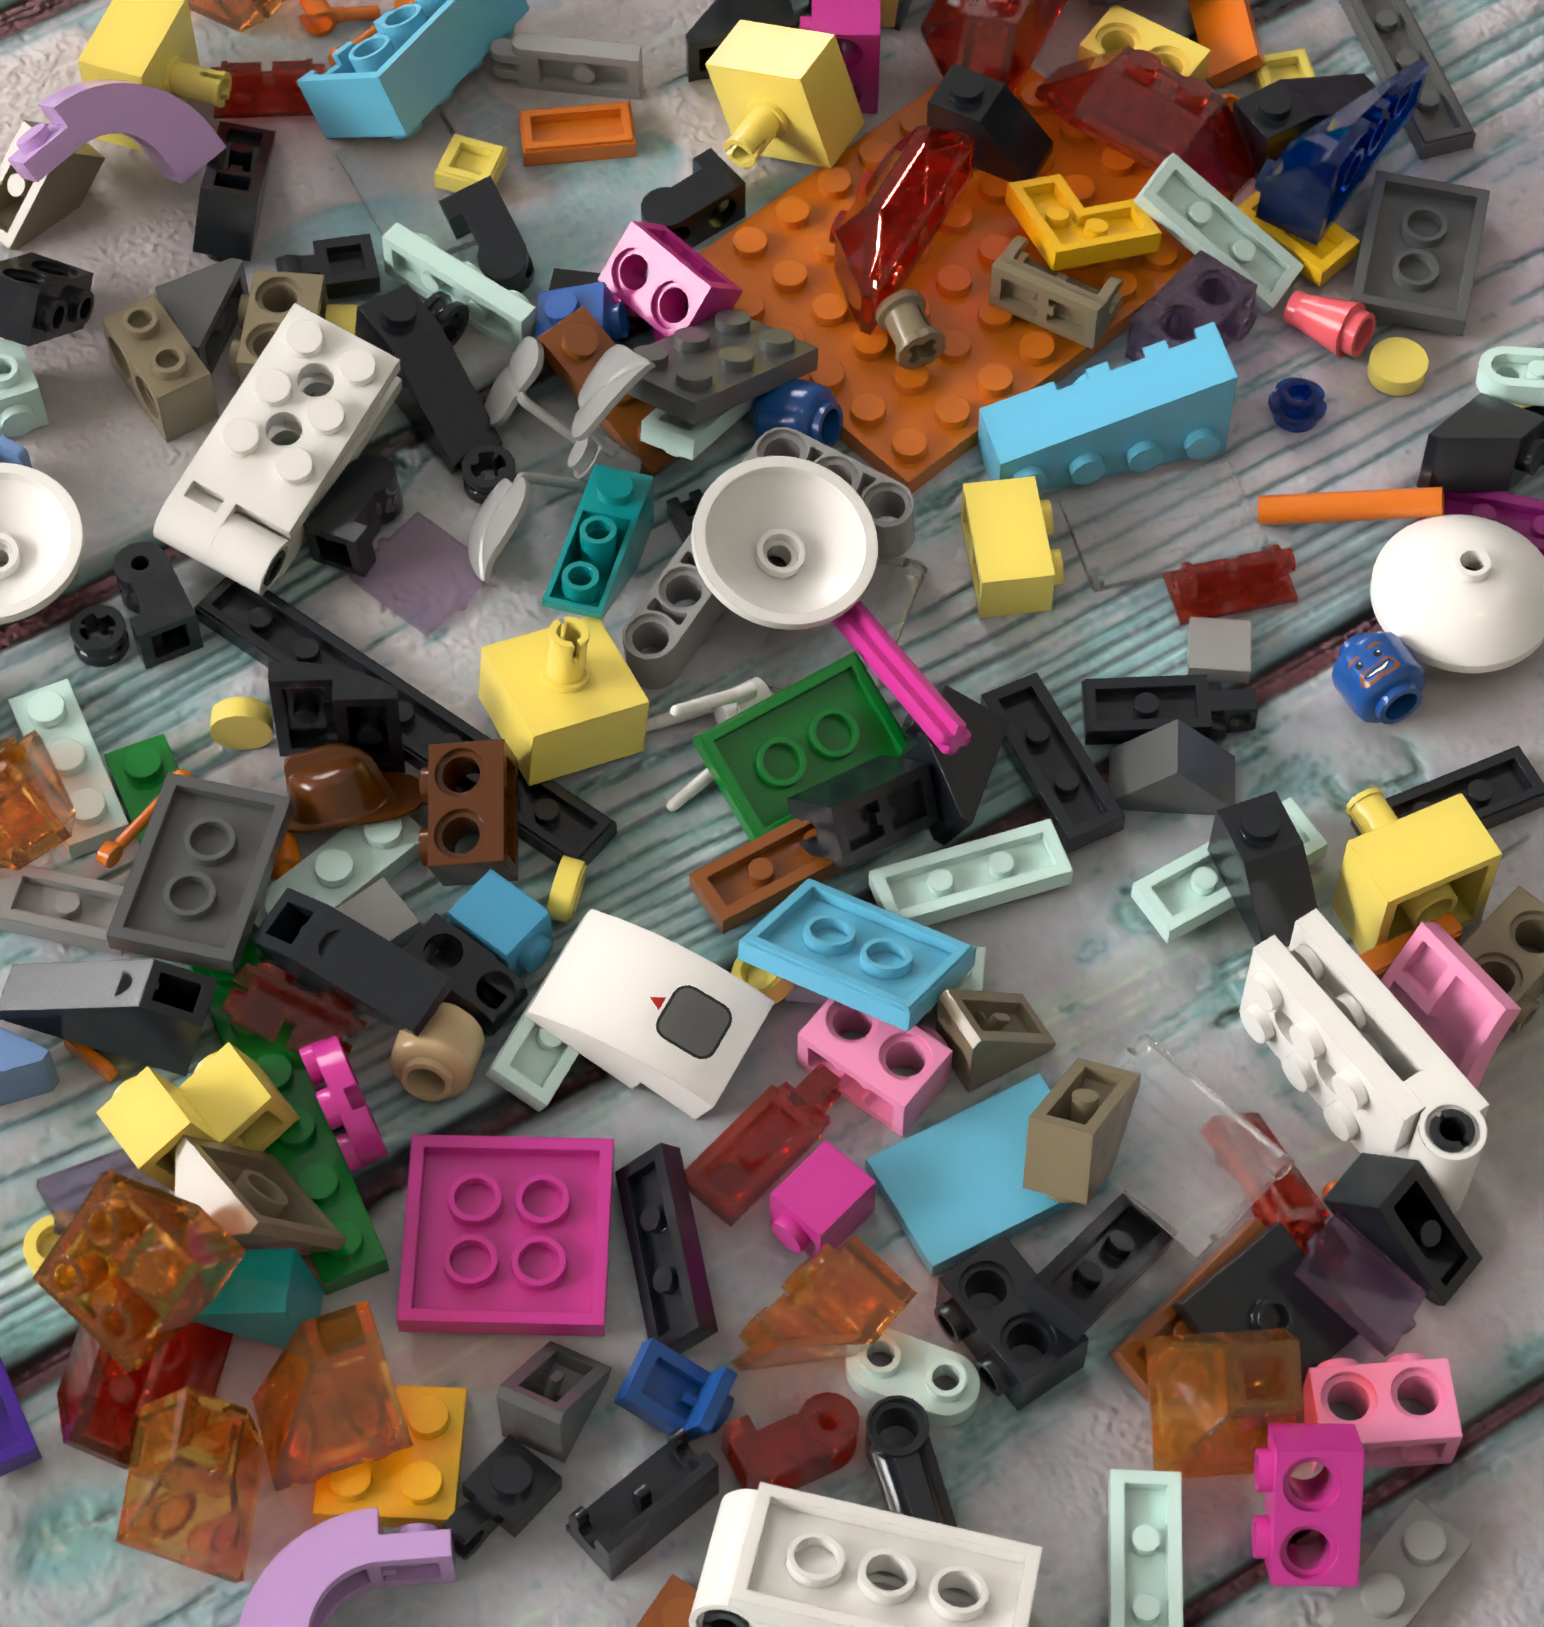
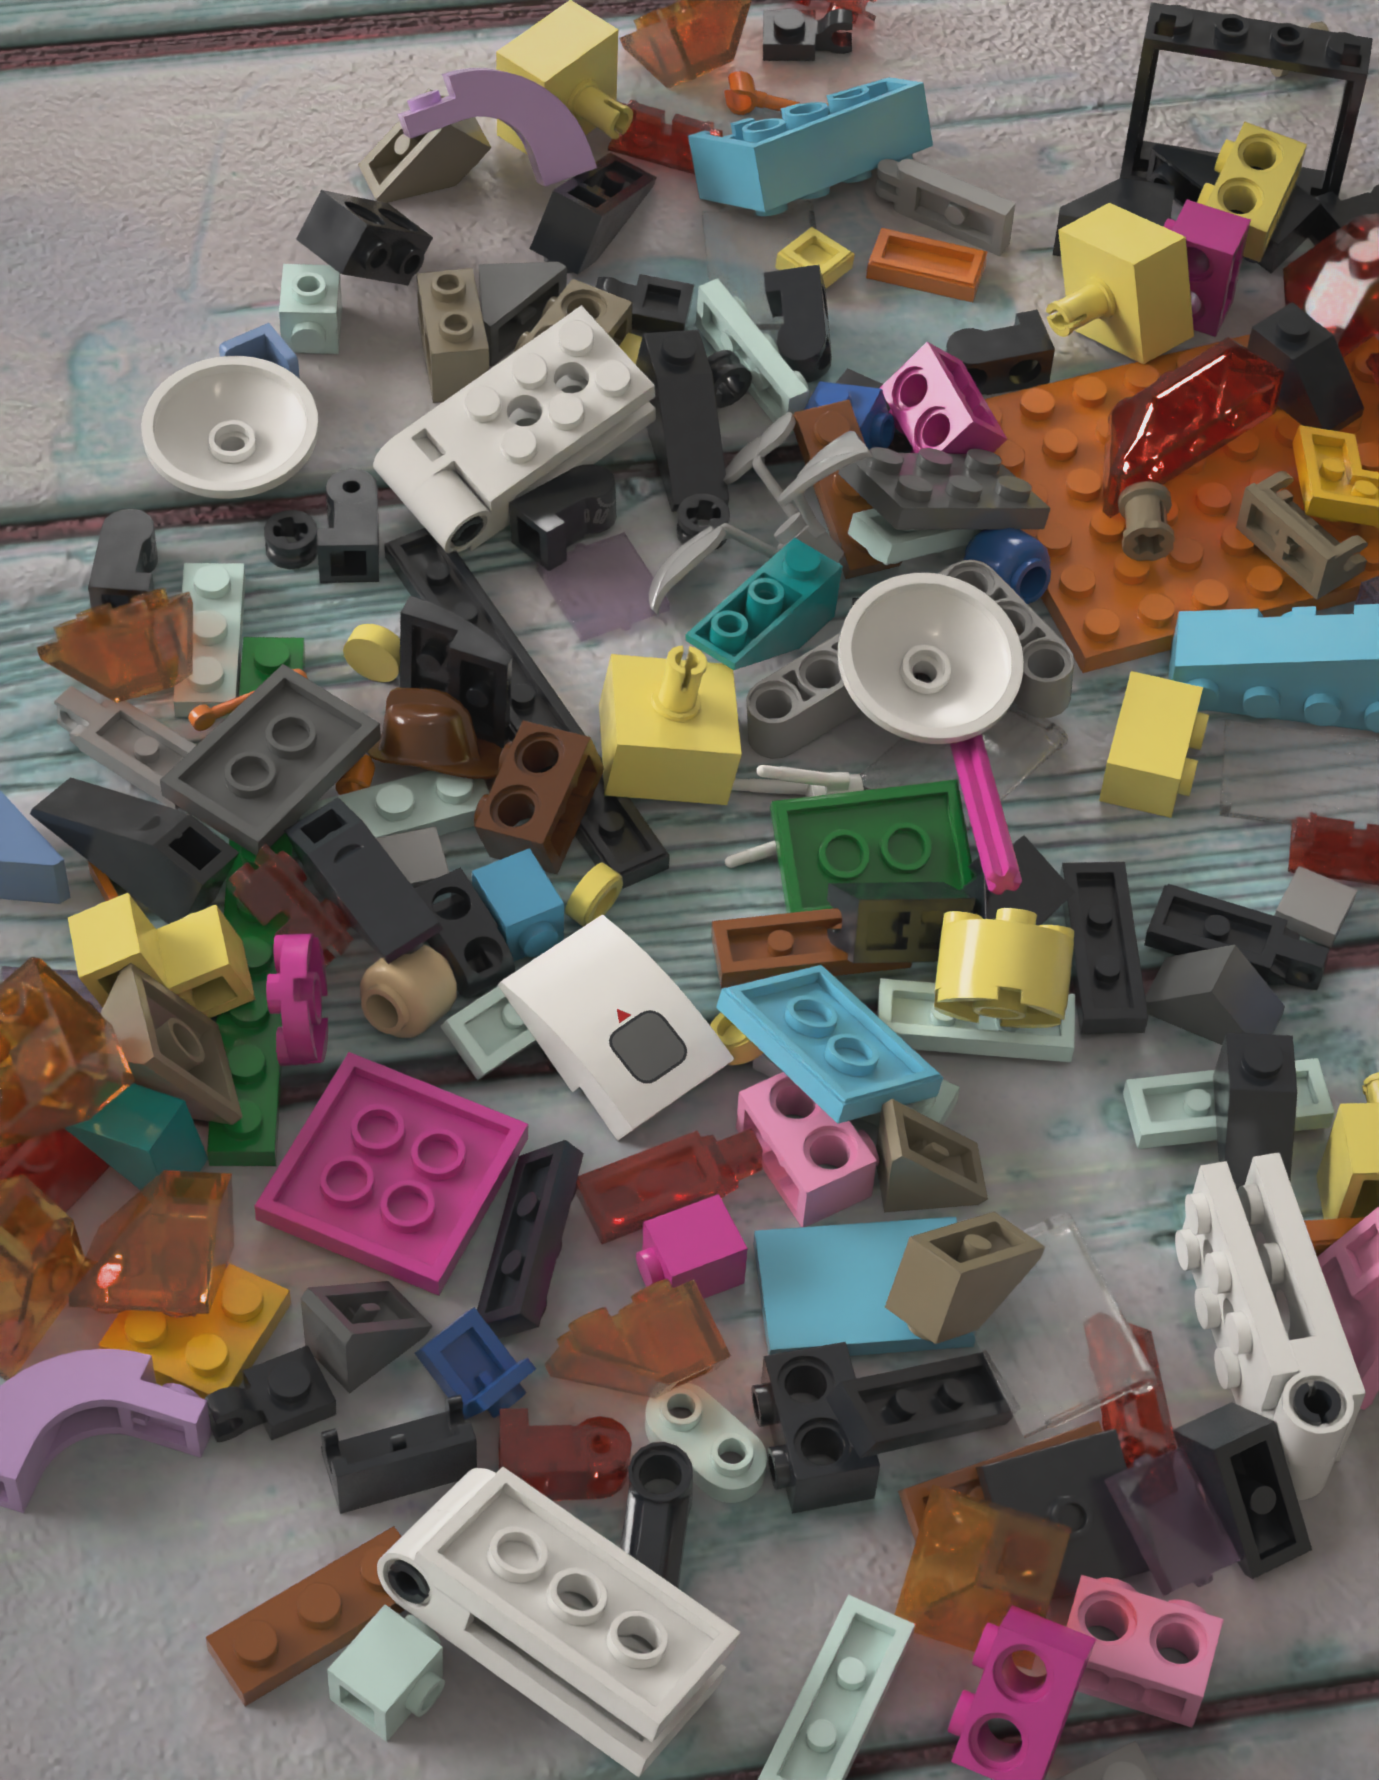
camera: 20 degrees right, 5 degrees down
(993, 825) = (1004, 969): none -> light yellow brick

